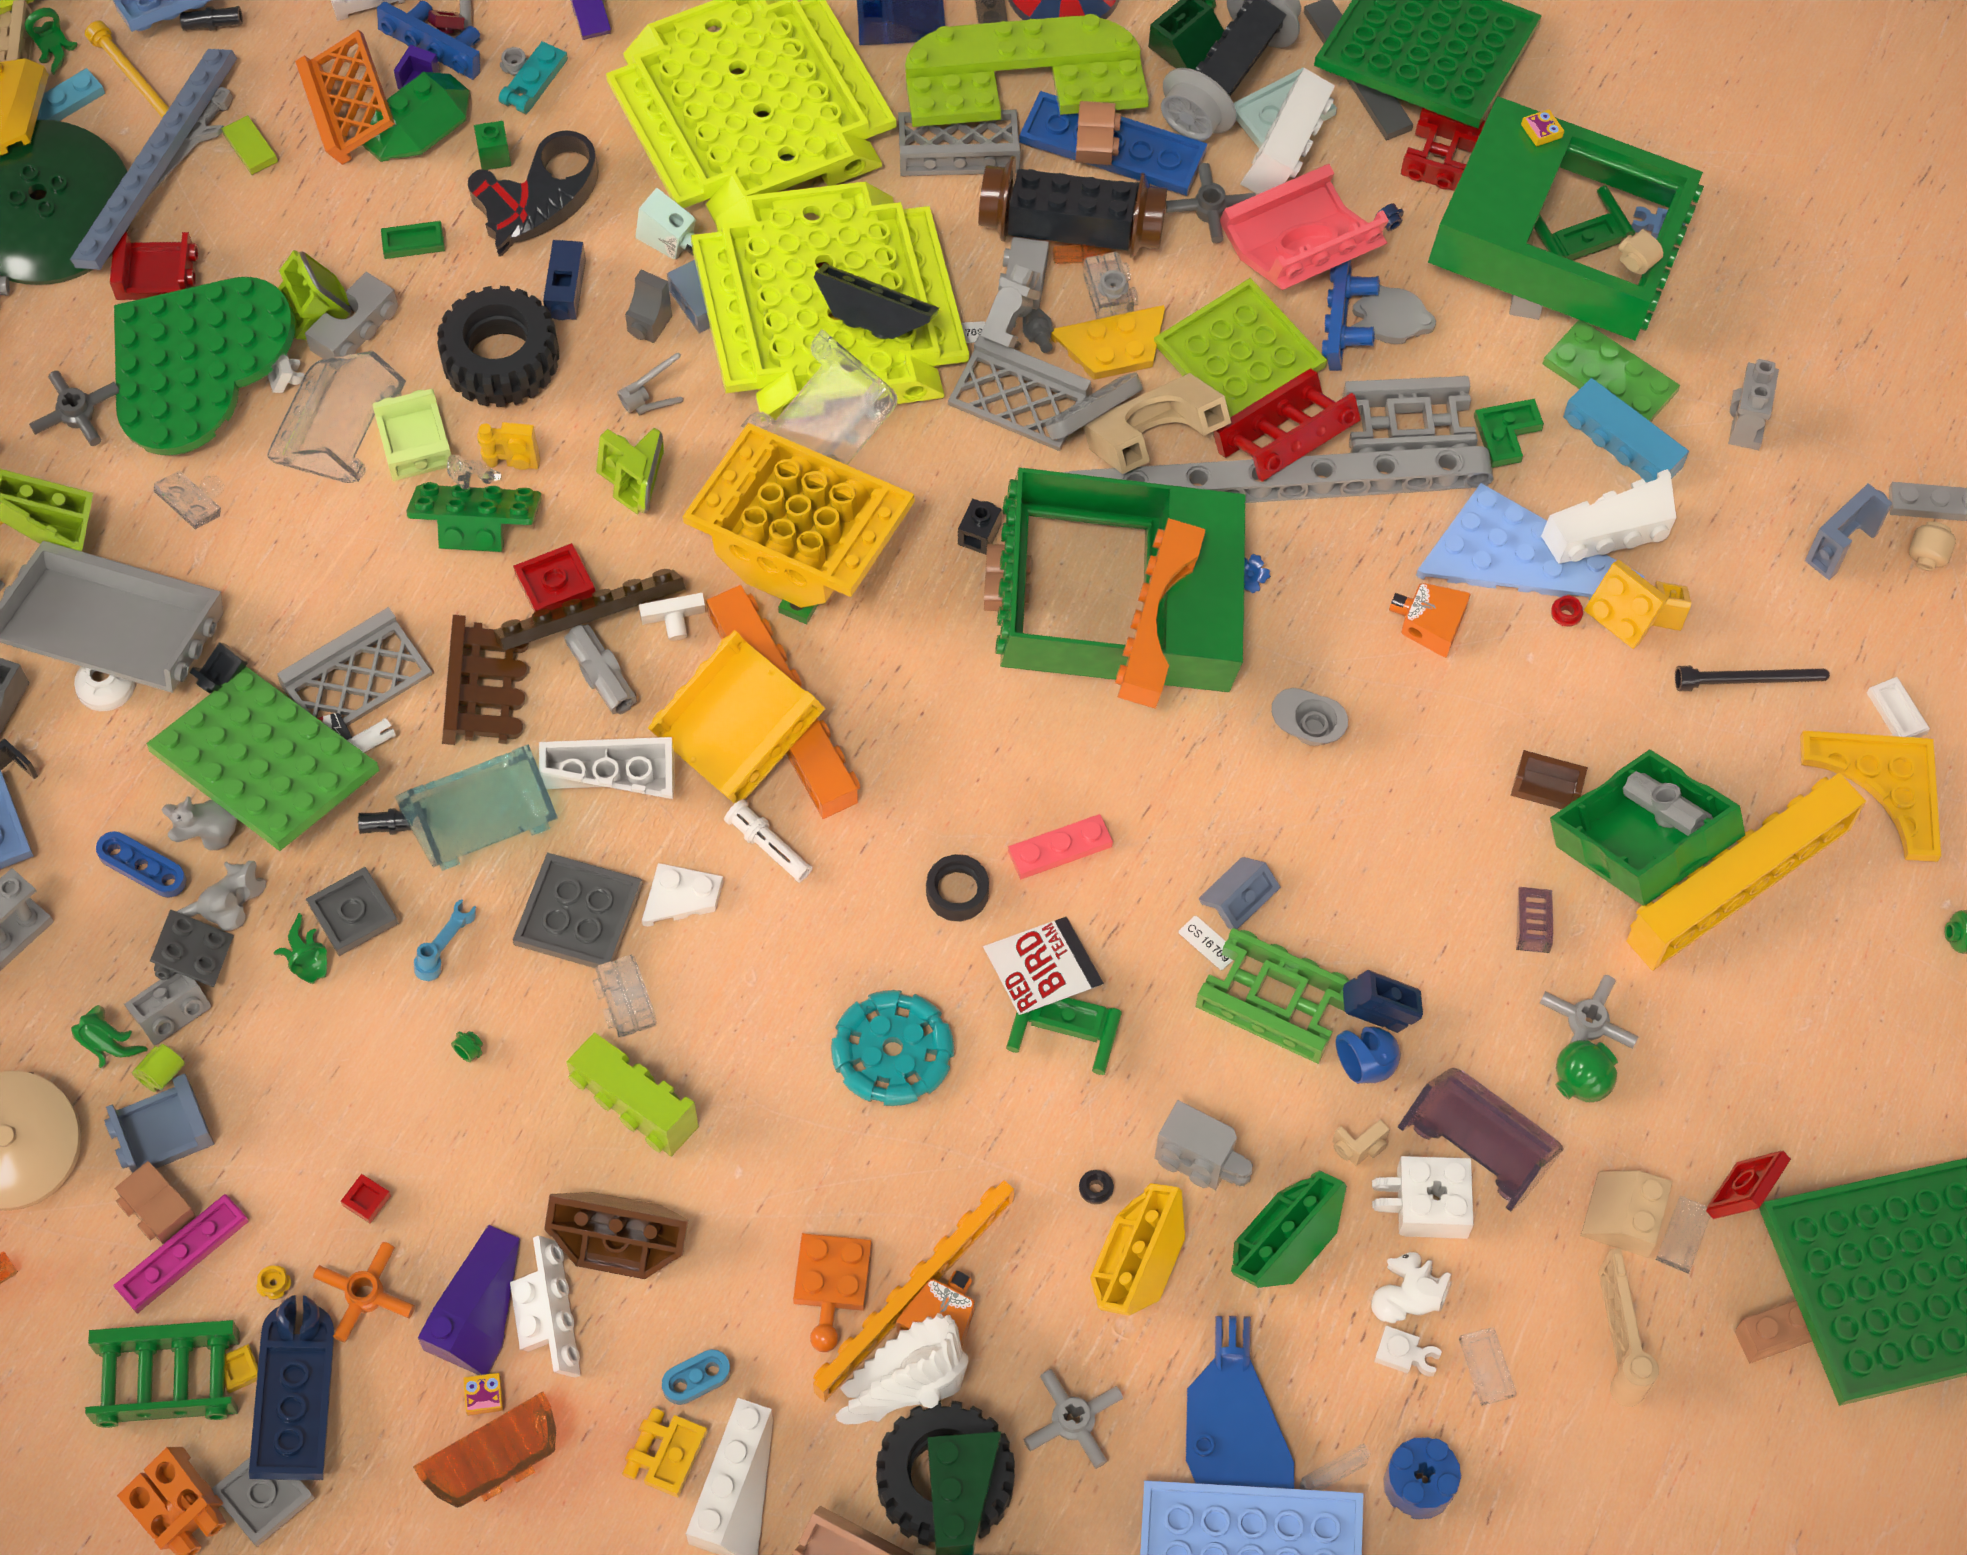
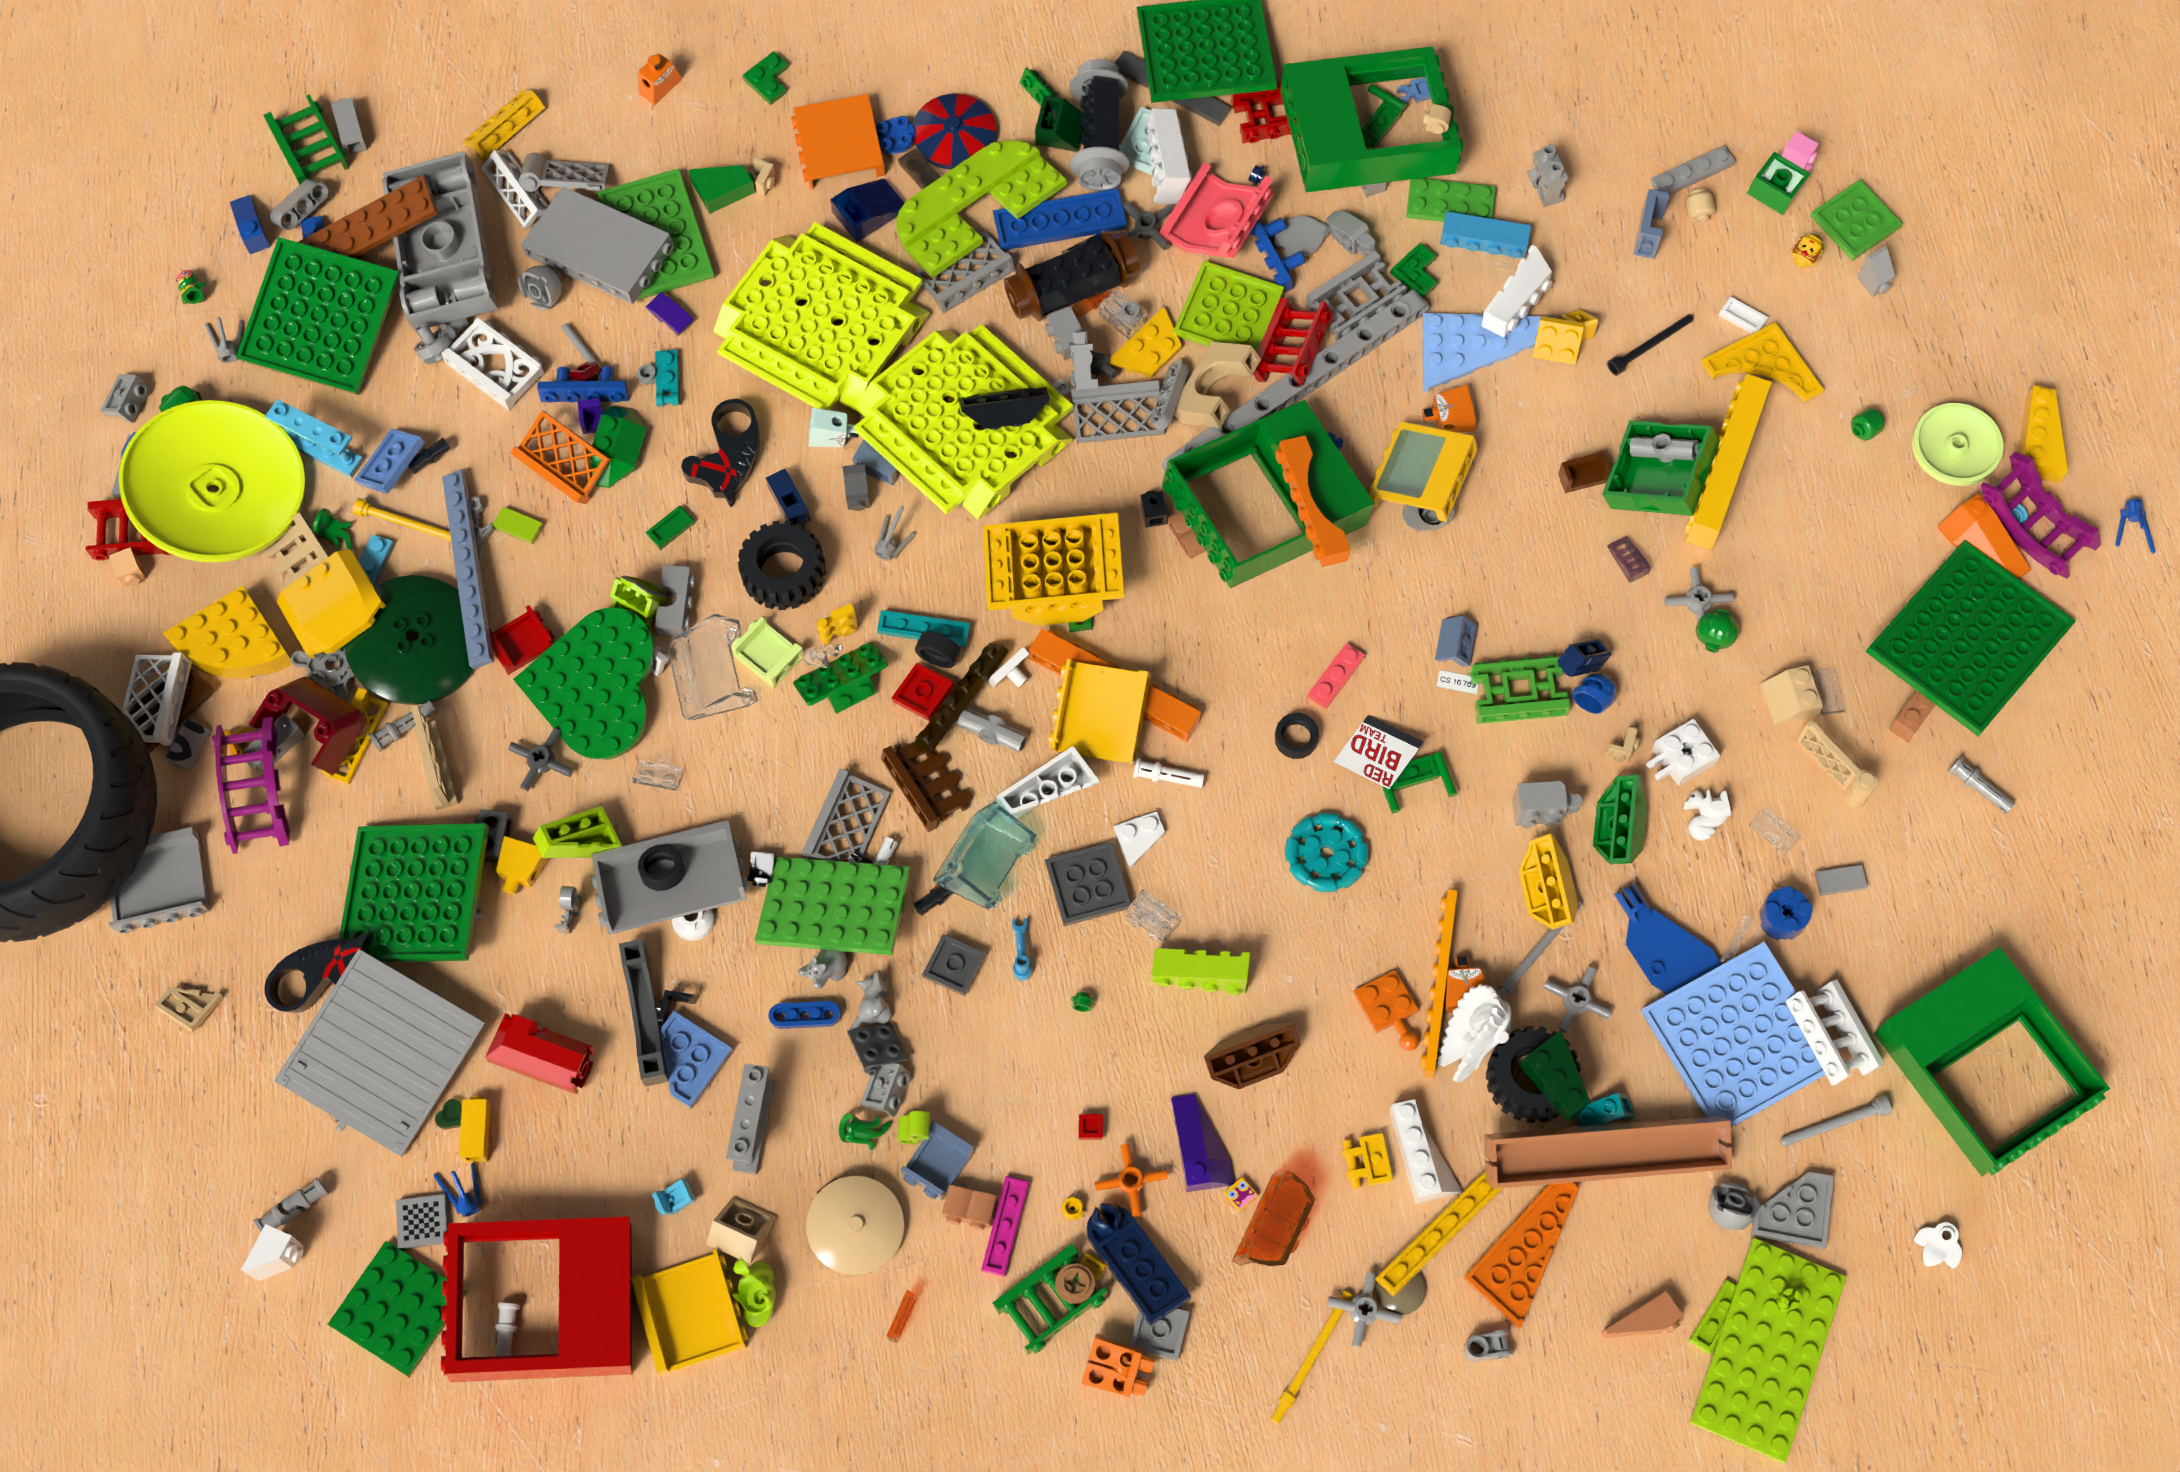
camera: 30 degrees left, 5 degrees up
(103, 583) = (666, 881): none -> black tyre
(202, 1354) = (1068, 1274): none -> medium nougat gear
(308, 959) = (947, 1009): green piece -> none
(492, 145) = (677, 437): green brick -> none
(544, 1309) = (1240, 1126): white bracket -> none
(602, 539) = (937, 649): none -> black tyre
(609, 509) = (913, 626): none -> teal plate
(631, 468) = (923, 596): lime piece -> none
(694, 1375) = (1352, 1109): dark azure plate -> none
(836, 407) = (1024, 486): clear windscreen -> none
(999, 1347) = (1508, 985): none -> light grey bar
(1096, 131) = (1049, 219): nougat brick -> none
(1096, 1177) = (1496, 855): black plate -> none
(1342, 662) = (1424, 468): none -> panel
(1400, 1351) = (1724, 851): white plate -> none
(1455, 342) = (1351, 233): none -> light grey hinge
(1486, 1131) = (1691, 698): windscreen -> none
(1531, 1483) = (1841, 880): none -> light grey tile
(1542, 127) = (1325, 70): tile -> none
(1570, 604) = (1524, 358): red plate -> none
(1748, 1184) = (1848, 642): red tile -> none
(1804, 1460) = (1975, 780): none -> light grey pin

